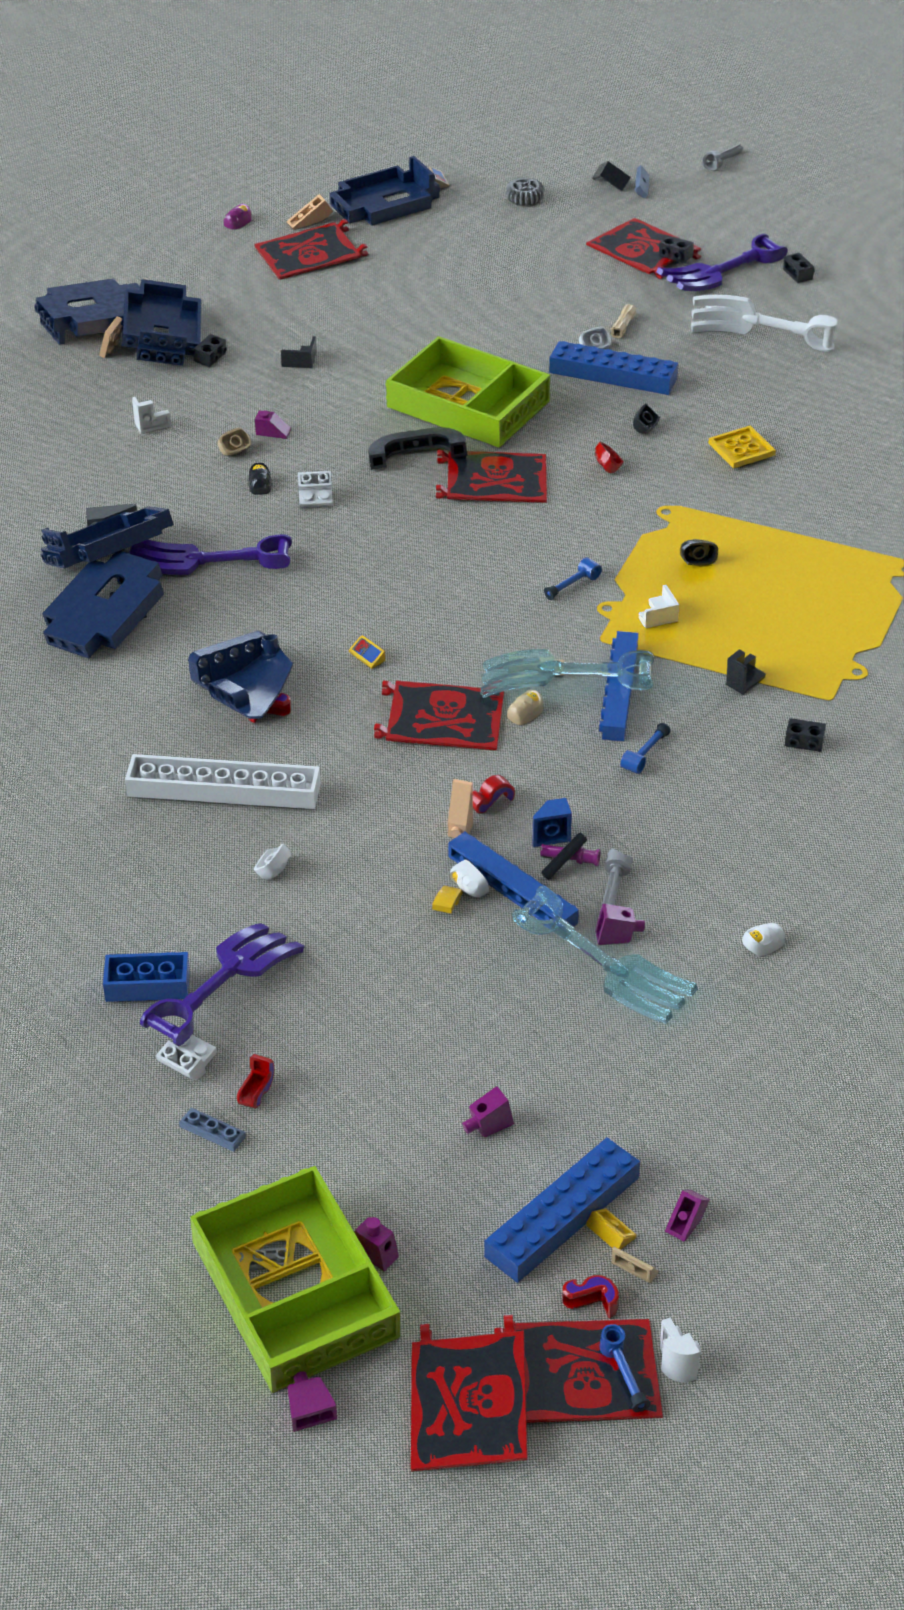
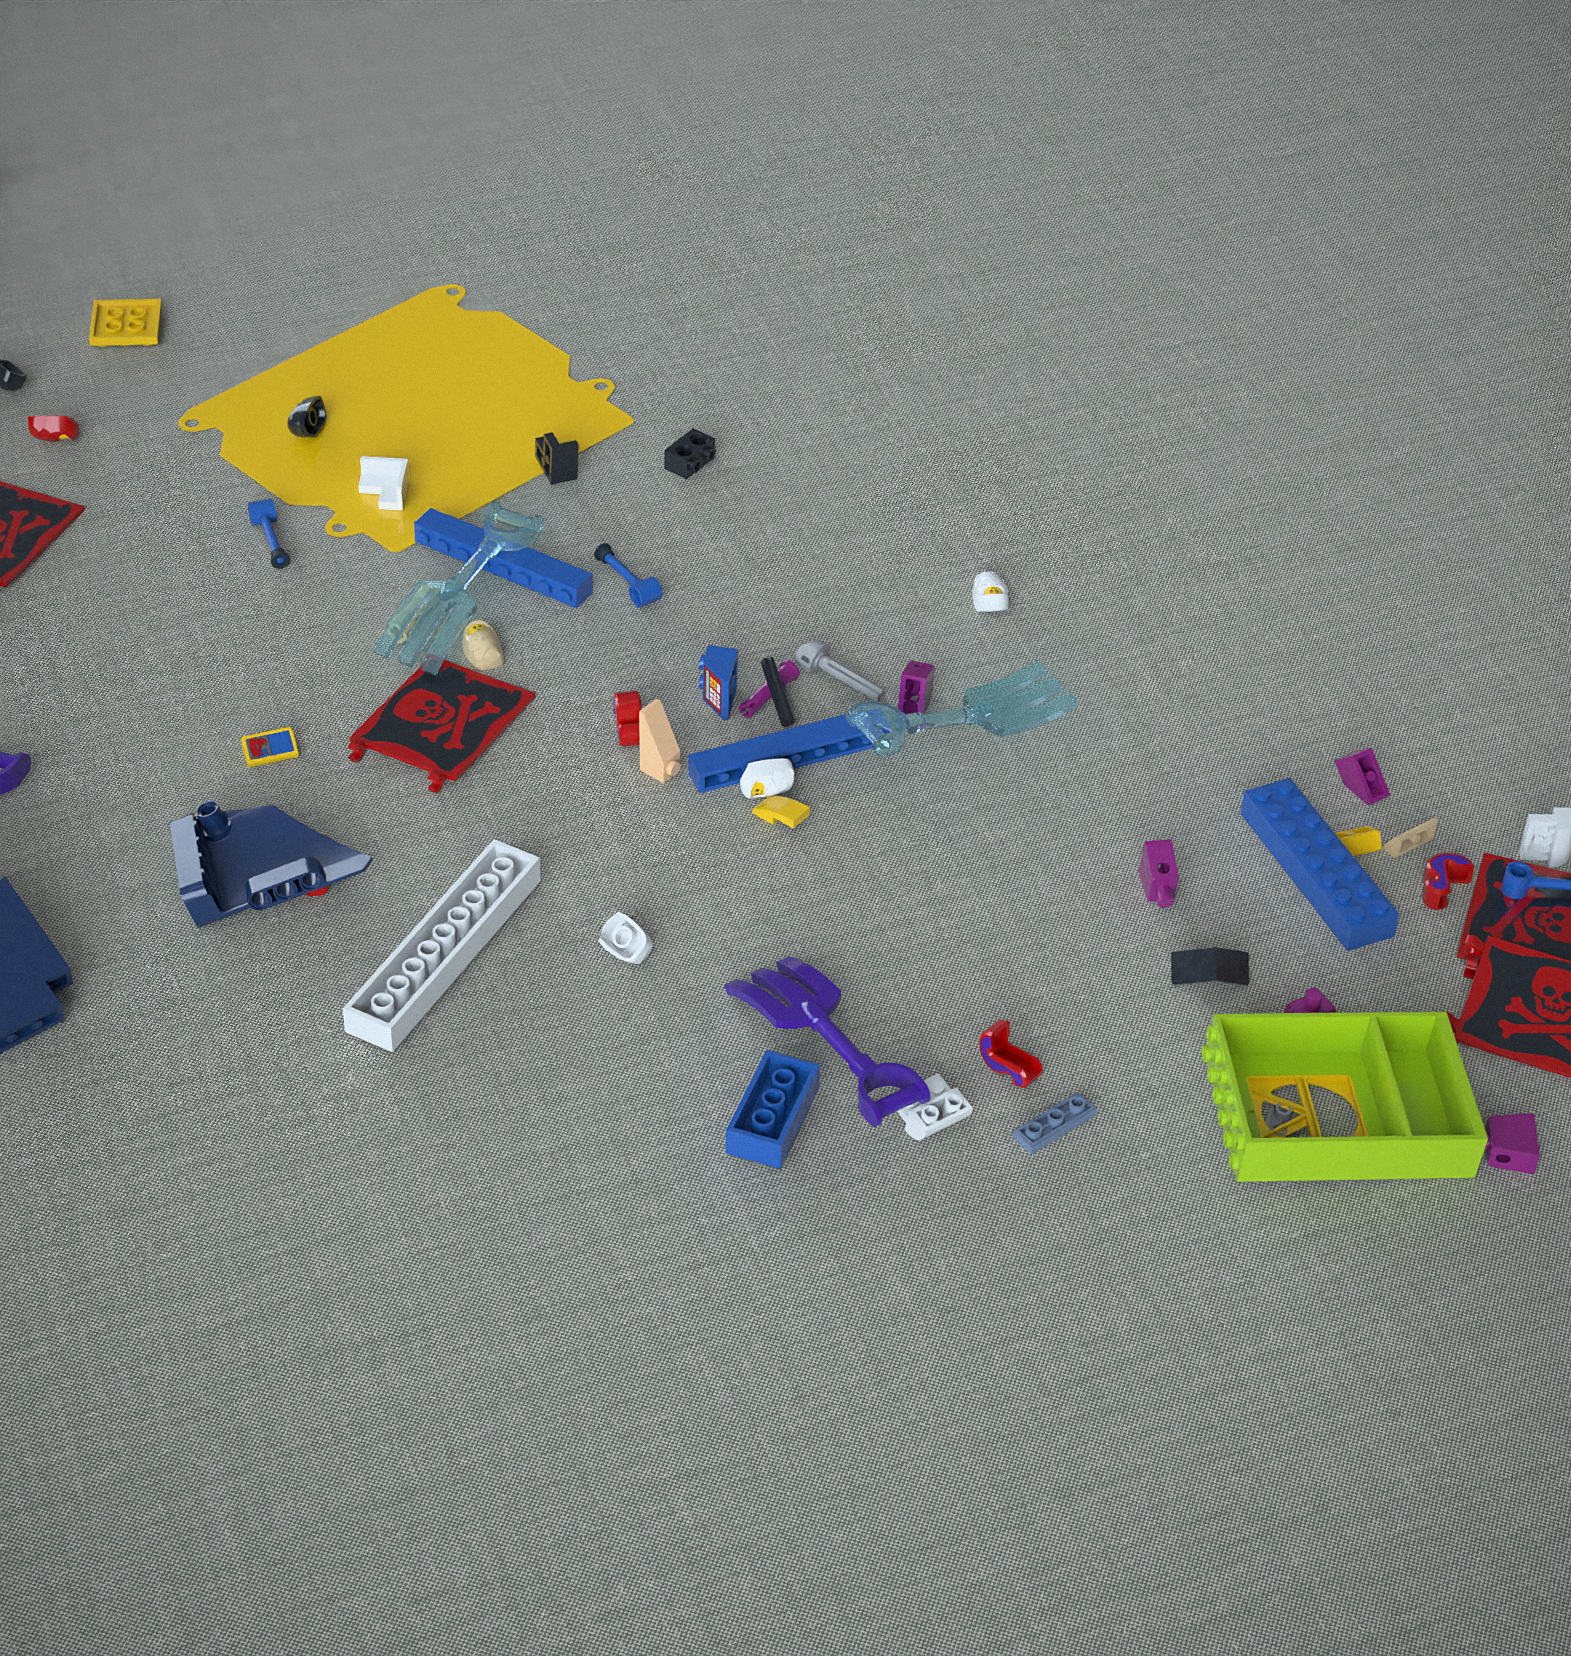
camera: 70 degrees left, 0 degrees up
(407, 1175) = (1209, 966): none -> black panel

